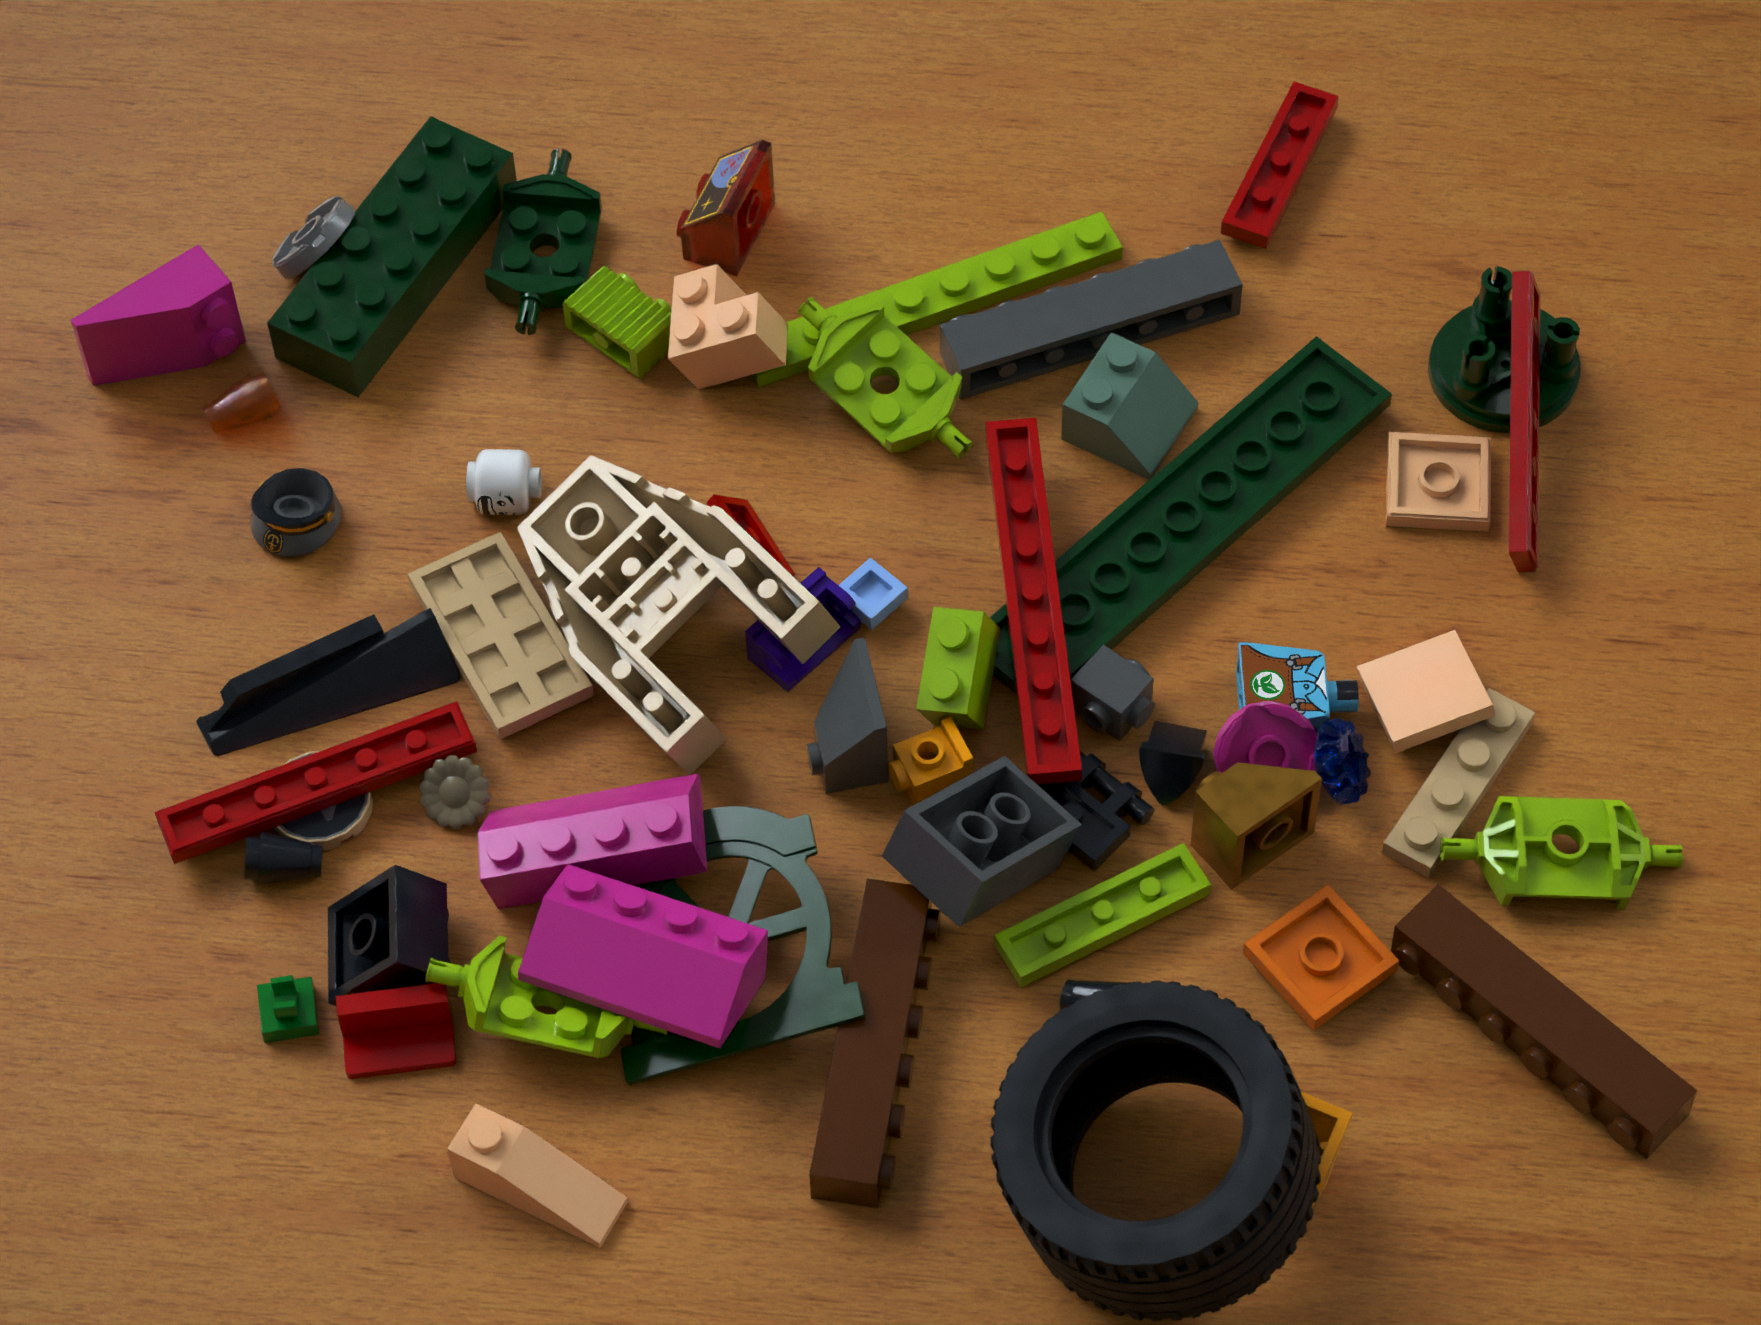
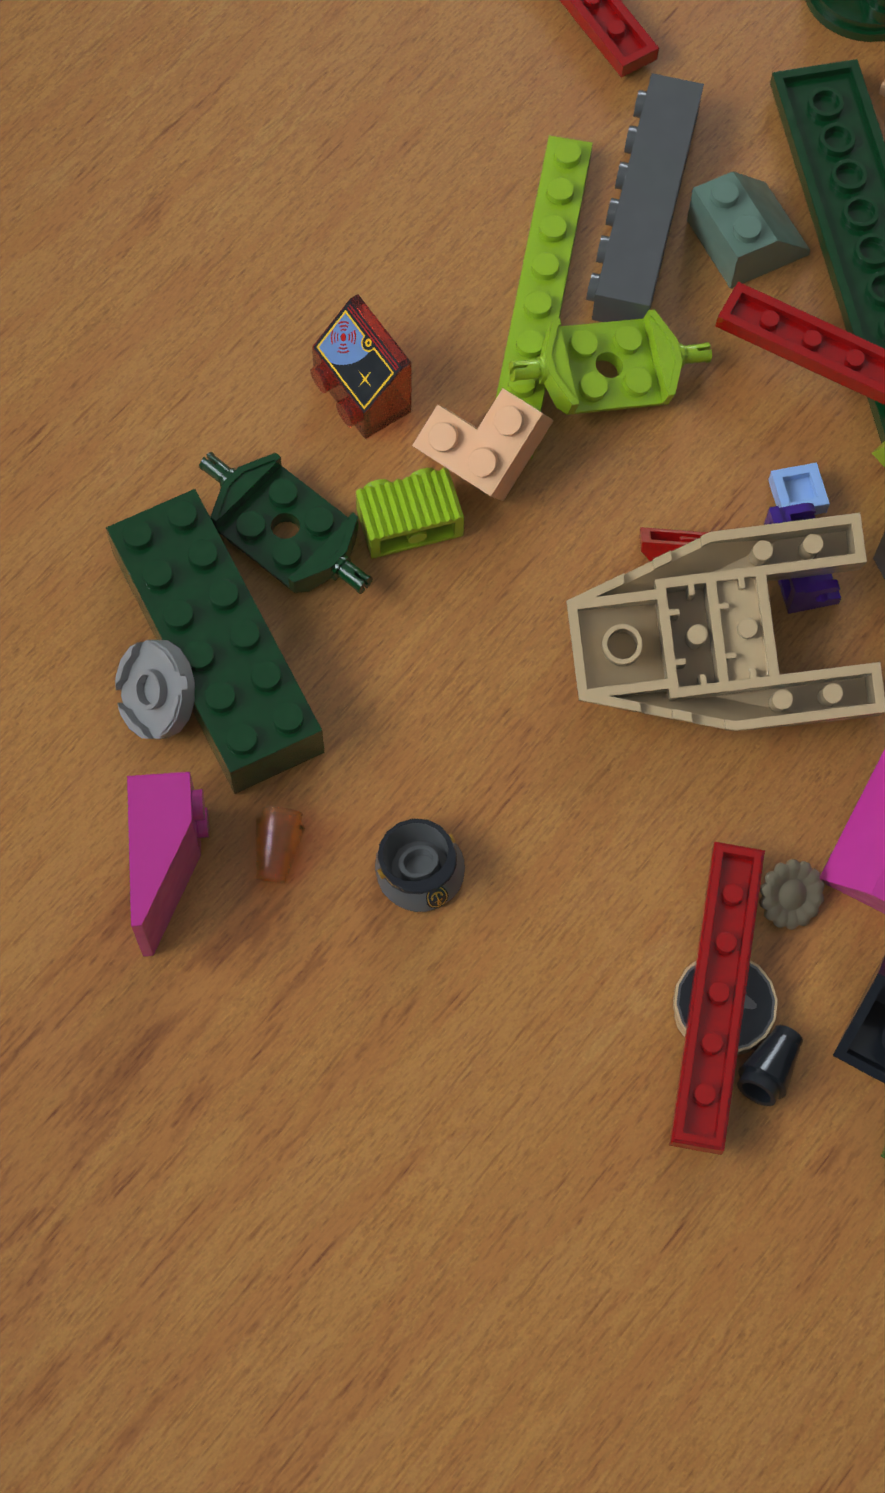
camera: 60 degrees left, 10 degrees up
(330, 681) = (615, 932): black wedge -> none
(501, 635) = (657, 775): tan plate -> none
(503, 482) = (506, 688): white head -> none

